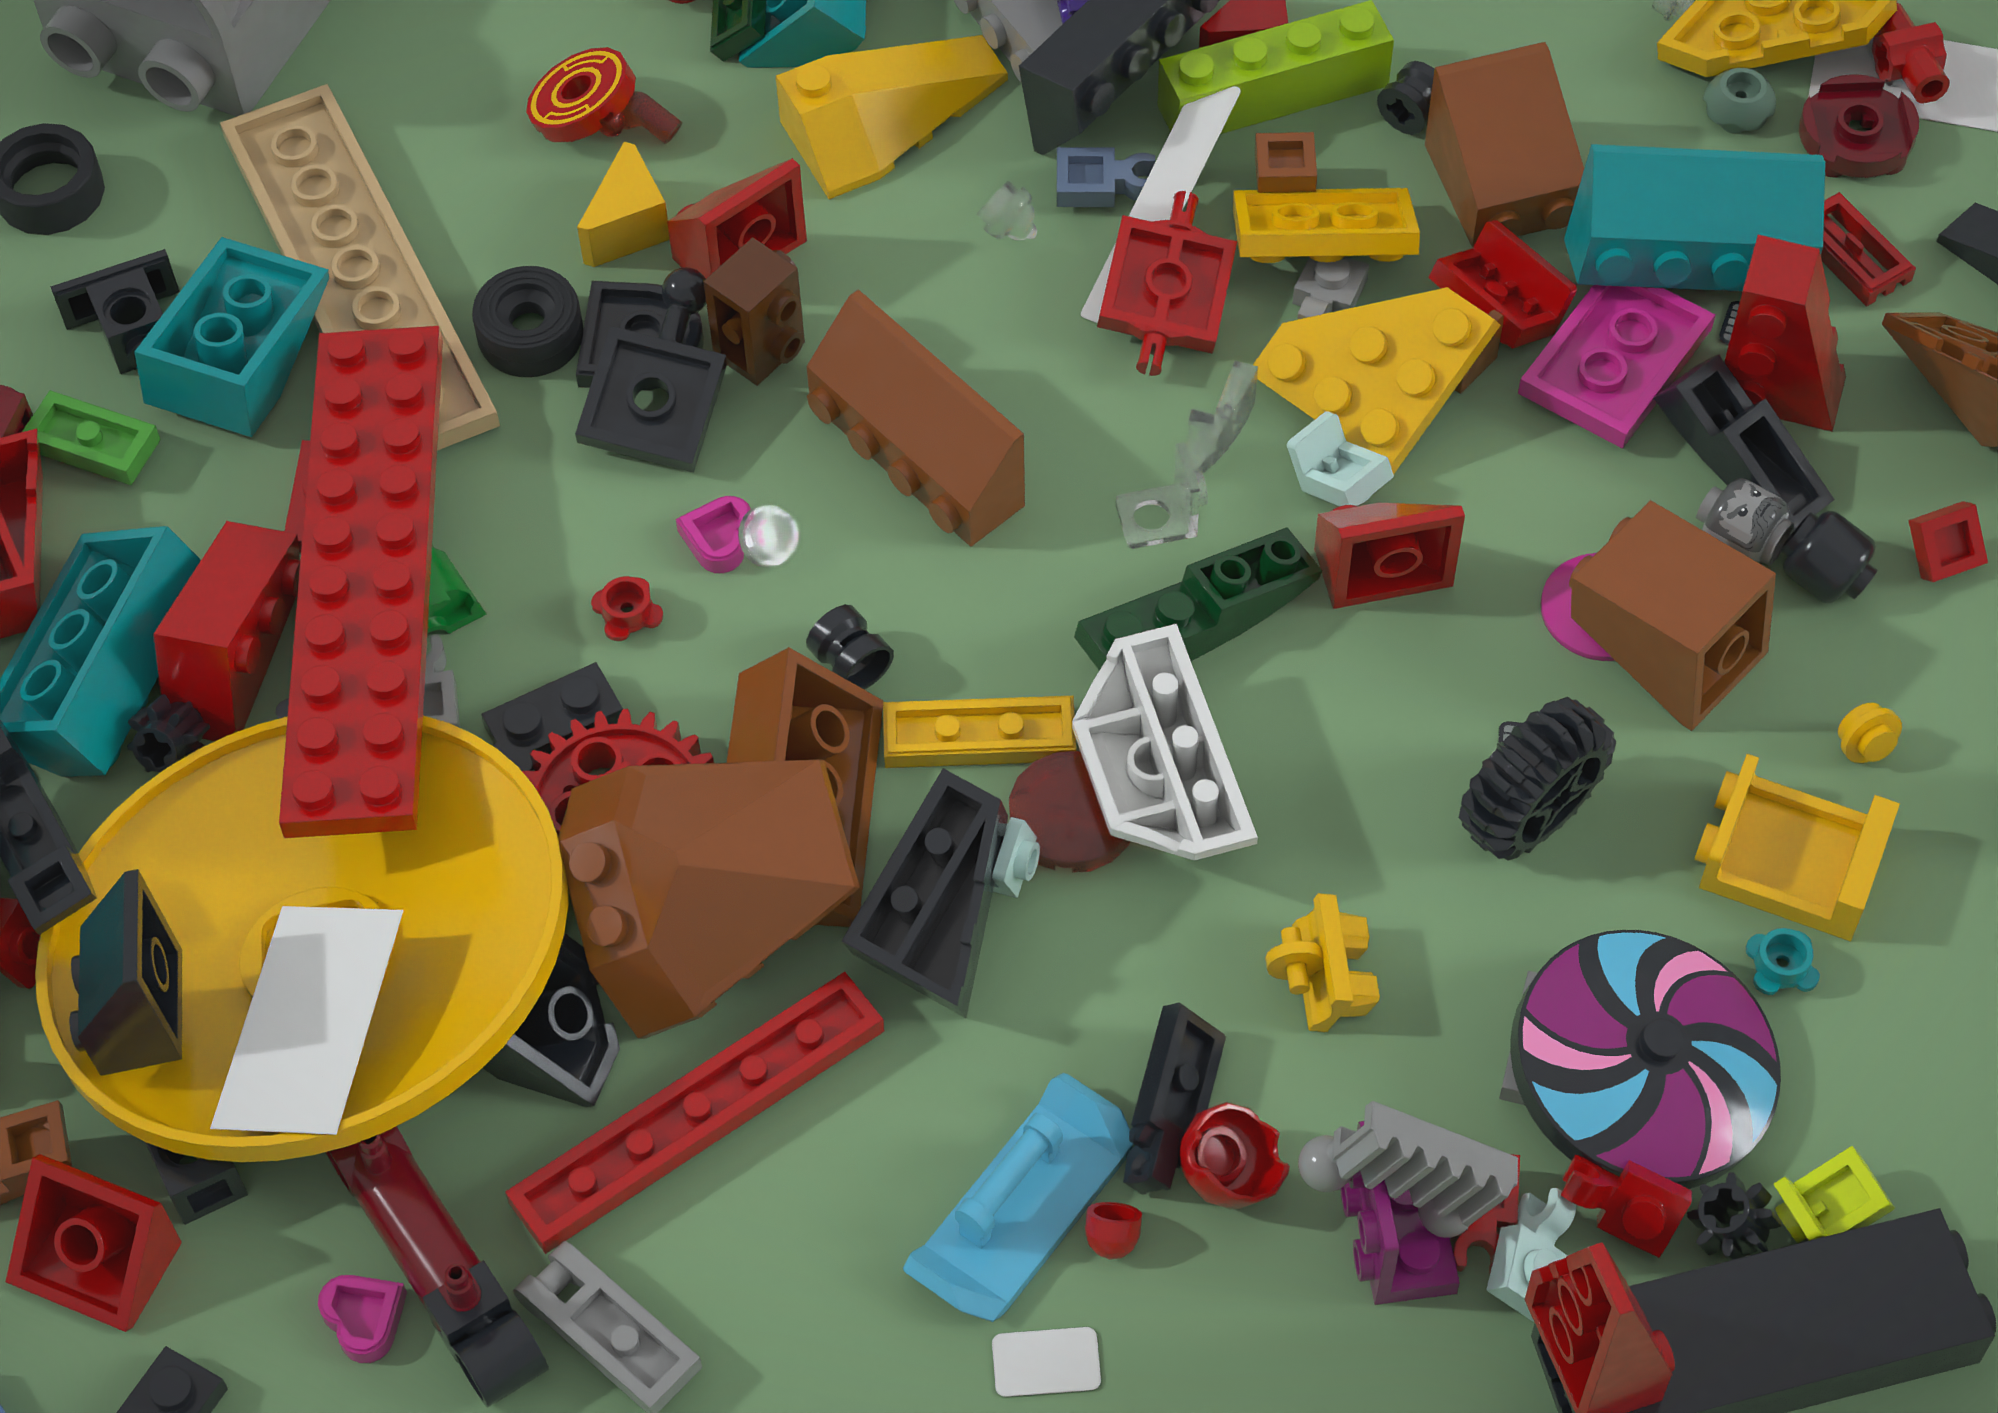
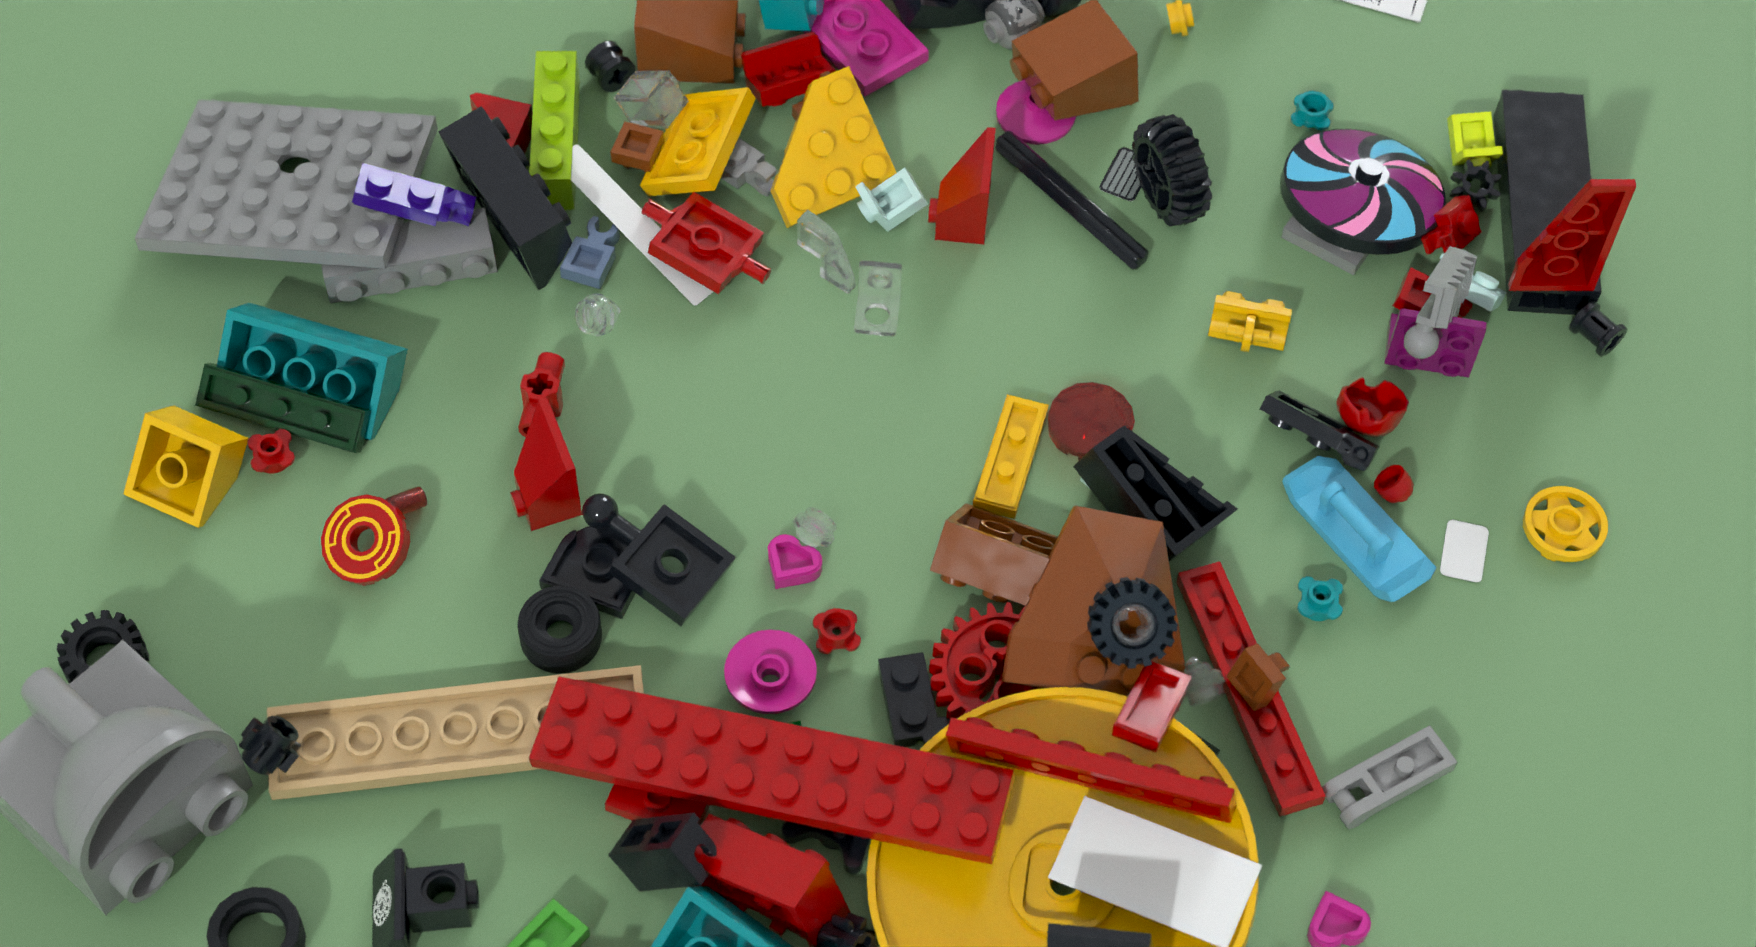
camera: 75 degrees left, 0 degrees up
(222, 494) = (661, 852): none -> black hinge
(231, 337) = (496, 822): teal slope -> none
(273, 86) = (269, 745): none -> black gear
(421, 907) = (1108, 773): none -> red plate
(441, 1266) = (1354, 855): dark red piece -> none
(528, 530) = (770, 654): none -> dark pink dish
(544, 940) = (1151, 706): none -> tile
(624, 212) = (483, 537): yellow slope -> none
(669, 872) = (1113, 607): none -> black bush
(678, 1044) = (1205, 682): none -> clear plate
(688, 1099) = (1258, 675): none -> dark orange tile
(755, 310) = (635, 473): reddish brown brick -> none
(852, 651) = (927, 504): black wheel -> none
(858, 193) = (541, 384): none -> red axle
(873, 105) = (465, 364): yellow wedge -> none
(883, 1189) = (1320, 609): none -> teal plate
(917, 421) = (767, 408): dark orange slope -> none
(1159, 752) = (1088, 349): white wedge -> none
(1214, 600) = (969, 304): dark green slope -> none
(1372, 152) = (651, 98): none -> clear brick
(1452, 688) = (1072, 200): none -> black axle
(1794, 851) = (1246, 75): yellow panel -> none

